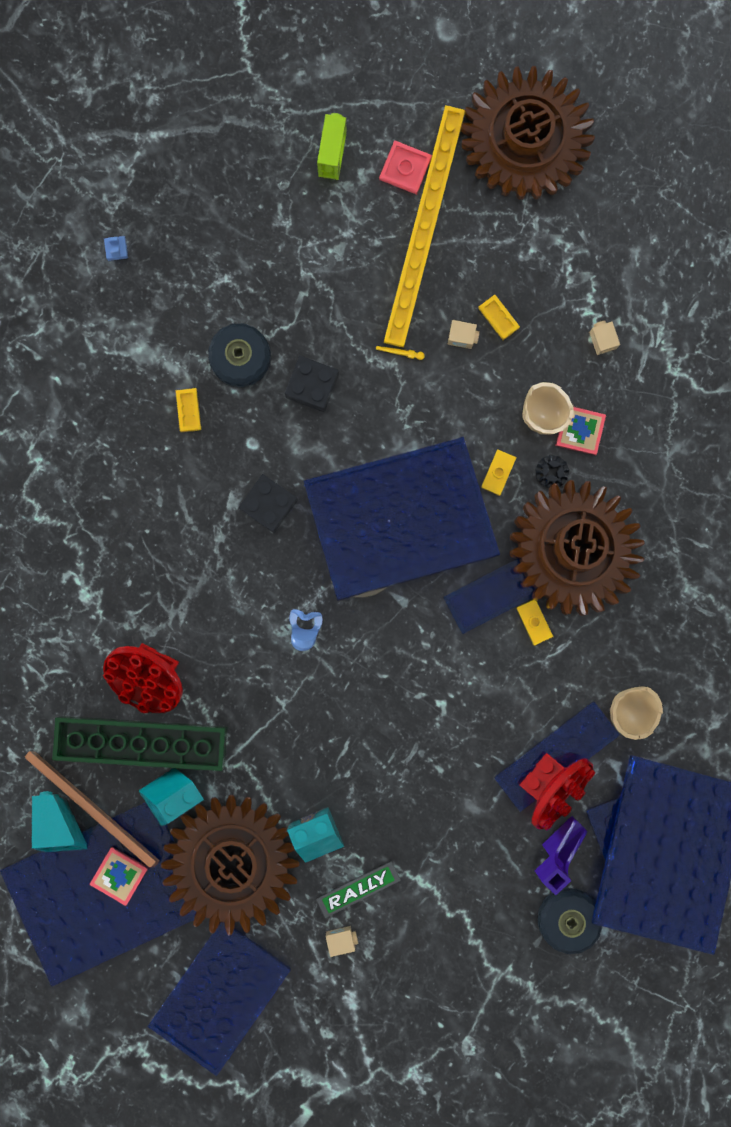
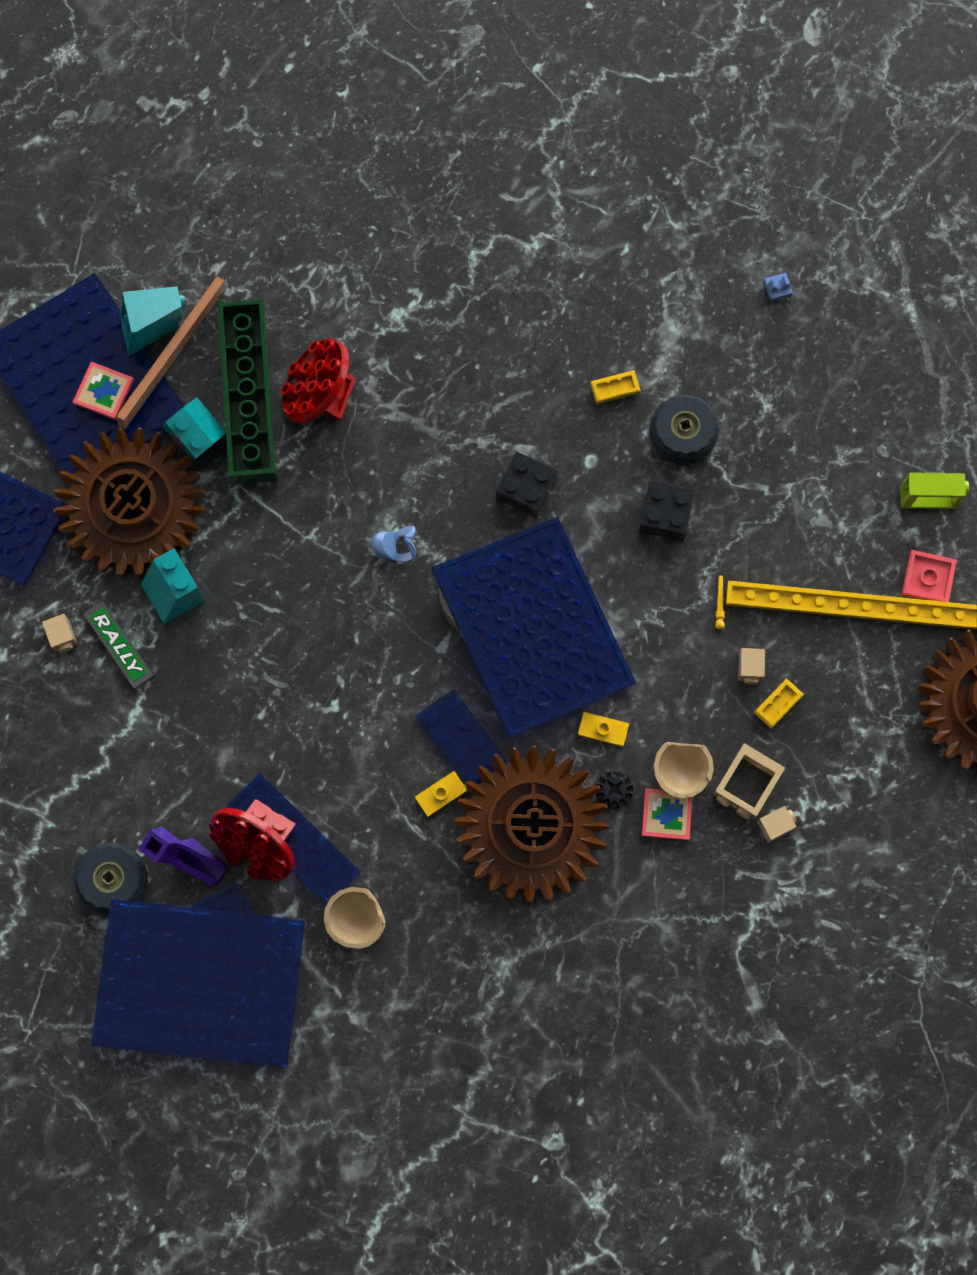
camera: 80 degrees right, 10 degrees down
(538, 355) = (761, 762): none -> tan window

